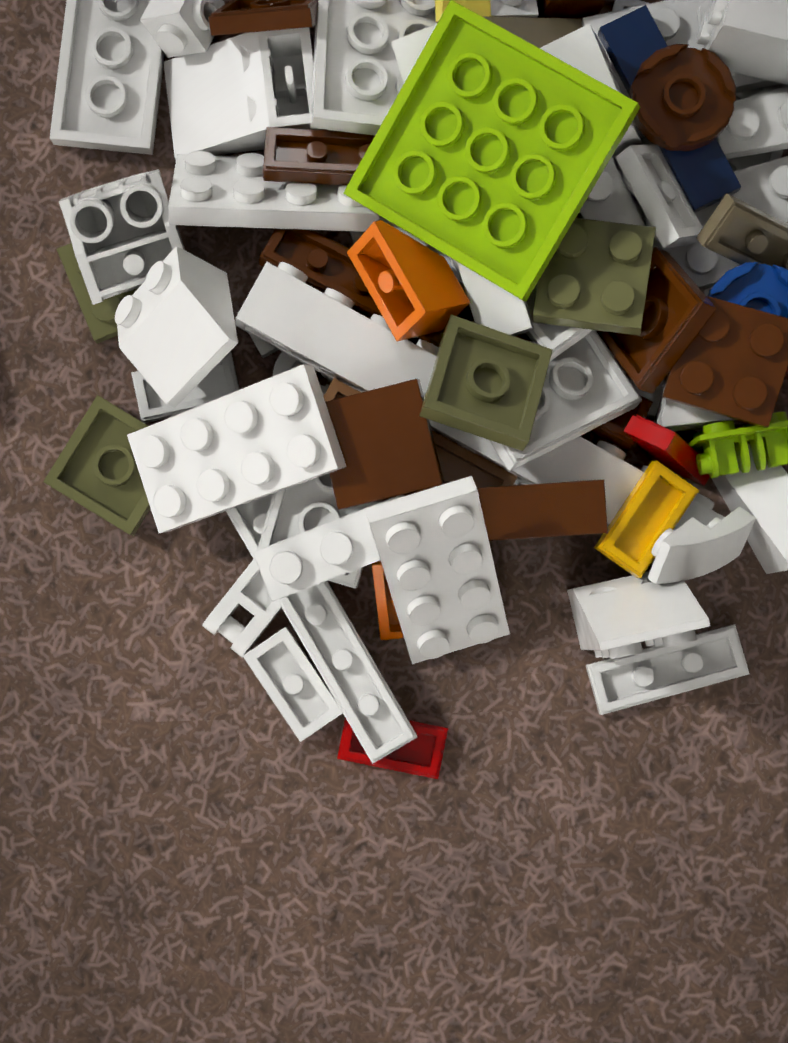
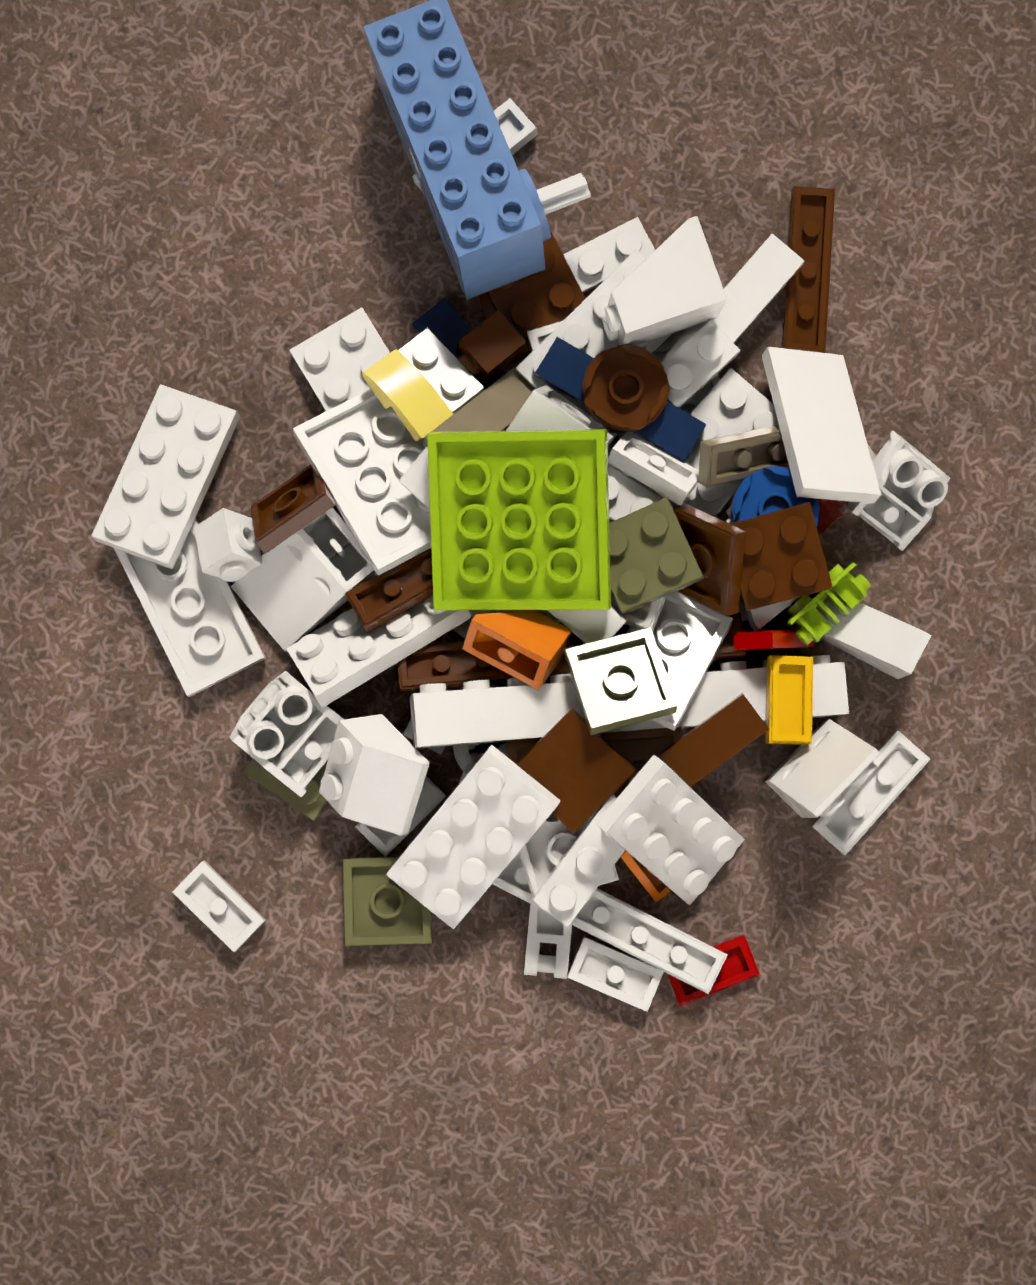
camera: 30 degrees left, 0 degrees up
(699, 548) = (839, 699): white slope -> none

